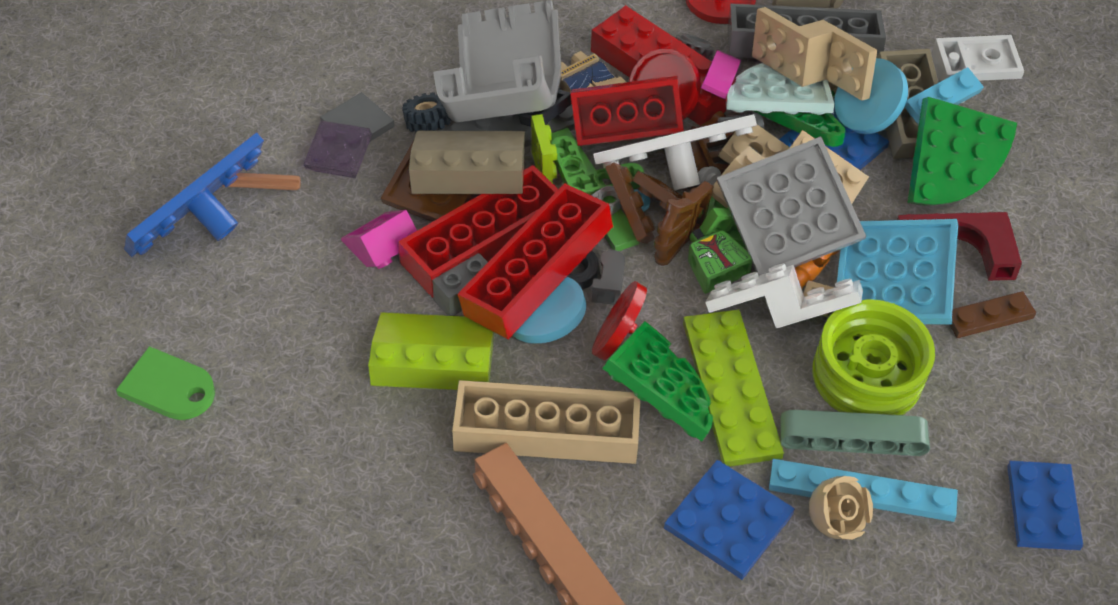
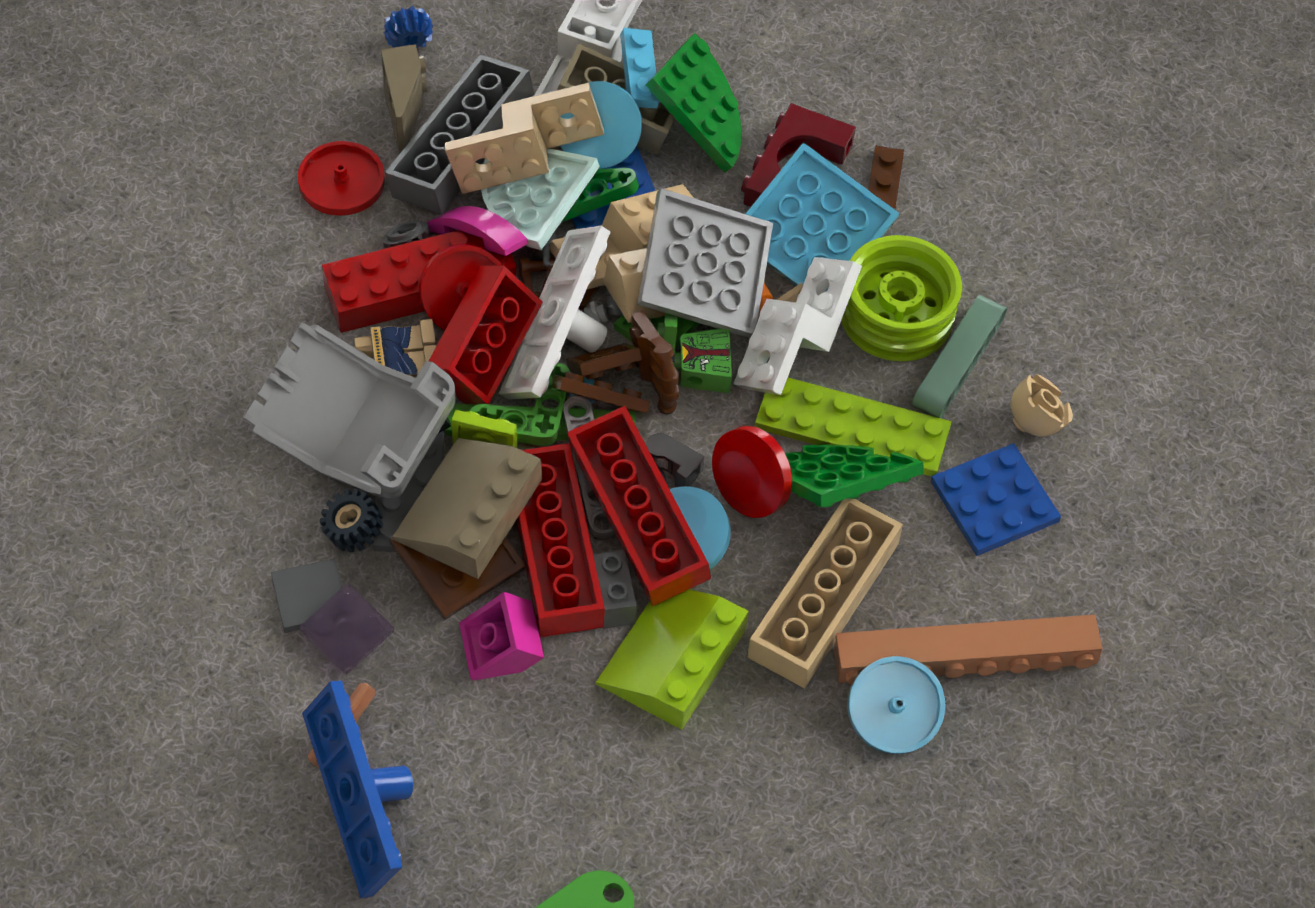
camera: 65 degrees left, 5 degrees up
(466, 516) = (896, 705): none -> medium azure piece
(885, 492) = (995, 407): medium azure plate -> none
(1044, 505) = (1099, 261): blue plate -> none

